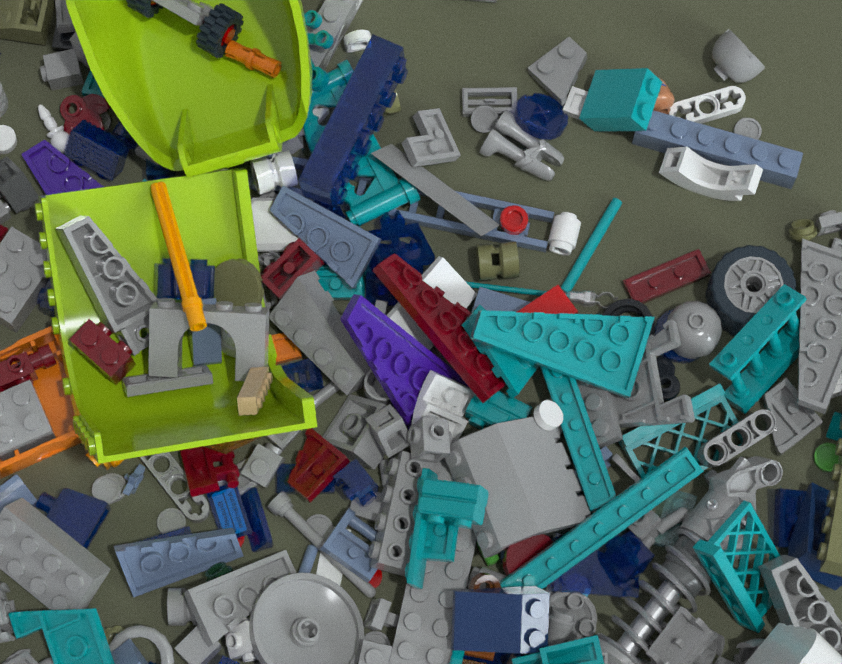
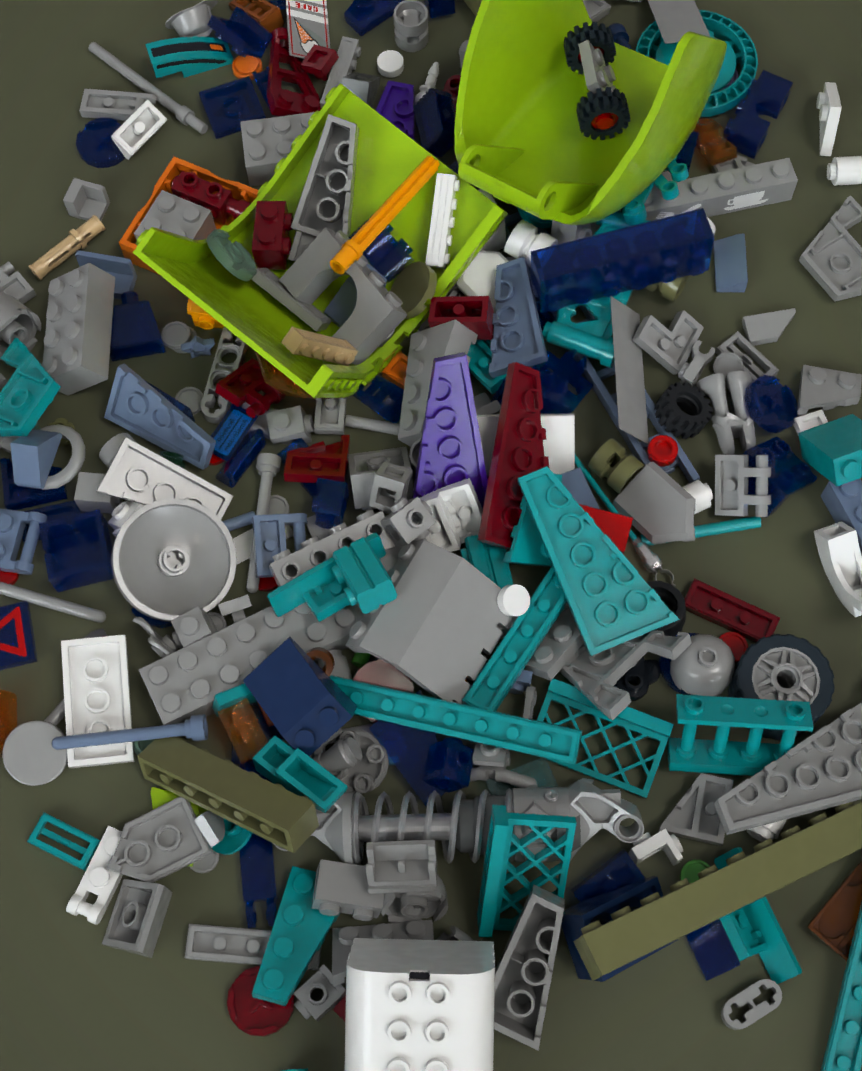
camera: 55 degrees right, 5 degrees down
(108, 394) = (231, 255): none -> sand green tile
(206, 219) = (442, 220): none -> white piece
(253, 59) = (604, 153): orange pin -> none
(415, 48) = (730, 264): none -> sand blue slope
(468, 146) = (692, 371): none -> light grey plate
(475, 65) = (766, 327): none -> light grey tile
(493, 190) = (675, 418): none -> black tyre
(554, 259) = (658, 506): none -> light grey tile
(580, 196) = (732, 485): none -> light grey plate
(592, 163) = (787, 471): none -> clear blue bracket
(691, 293) = (736, 643): none -> red piece
(749, 433) = (655, 778): light grey beam -> none
(789, 459) = (648, 846): none -> white bracket

